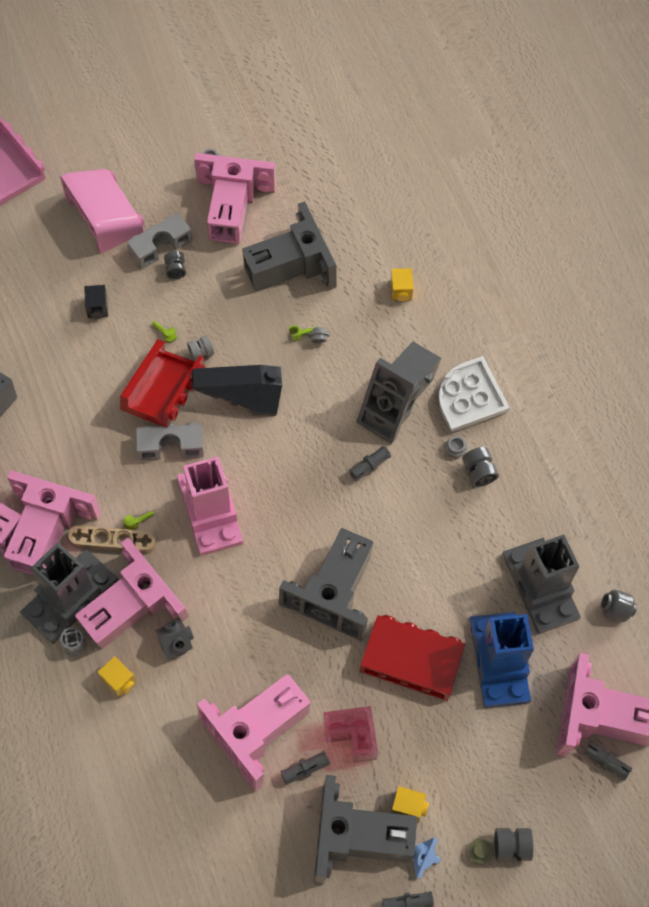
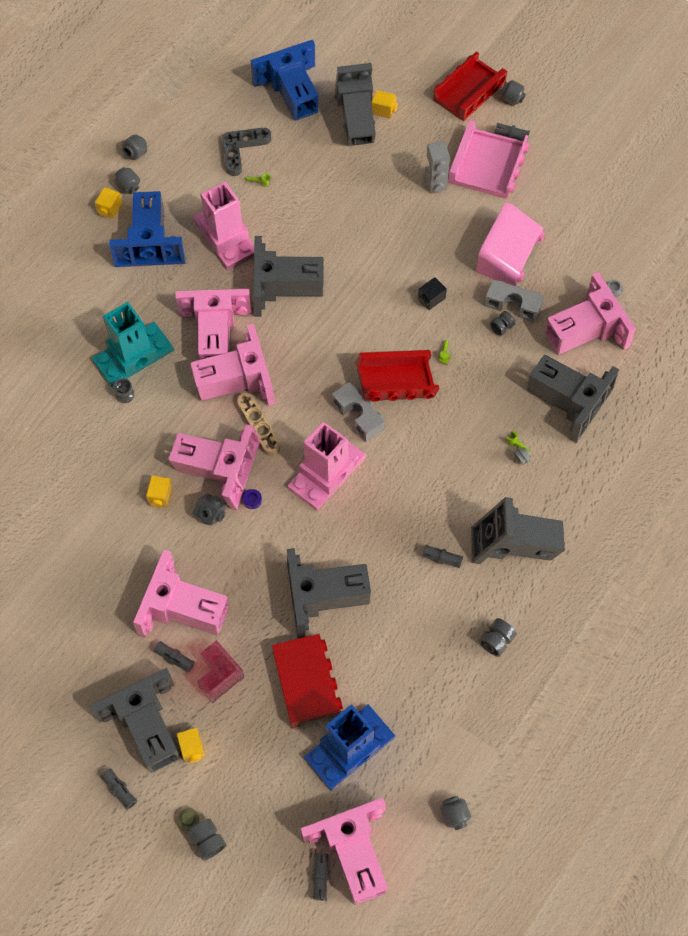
camera: 60 degrees right, 0 degrees up
(64, 589) = (197, 414): dark grey brick -> none
(75, 645) = (164, 452): light grey wheel -> none
(131, 523) = (279, 429): lime hand -> none
(188, 594) = (252, 499): none -> dark purple tile
(201, 347) = (447, 383): light grey wheel -> none
(247, 386) = (436, 430): black wedge -> none
(401, 284) = (613, 486): yellow brick -> none
(425, 856) = (160, 782): light blue piece -> none
(456, 446) = (504, 610): light grey plate -> none
(470, 395) = (556, 594): white plate -> none
(545, 581) = (432, 742): dark grey brick -> none

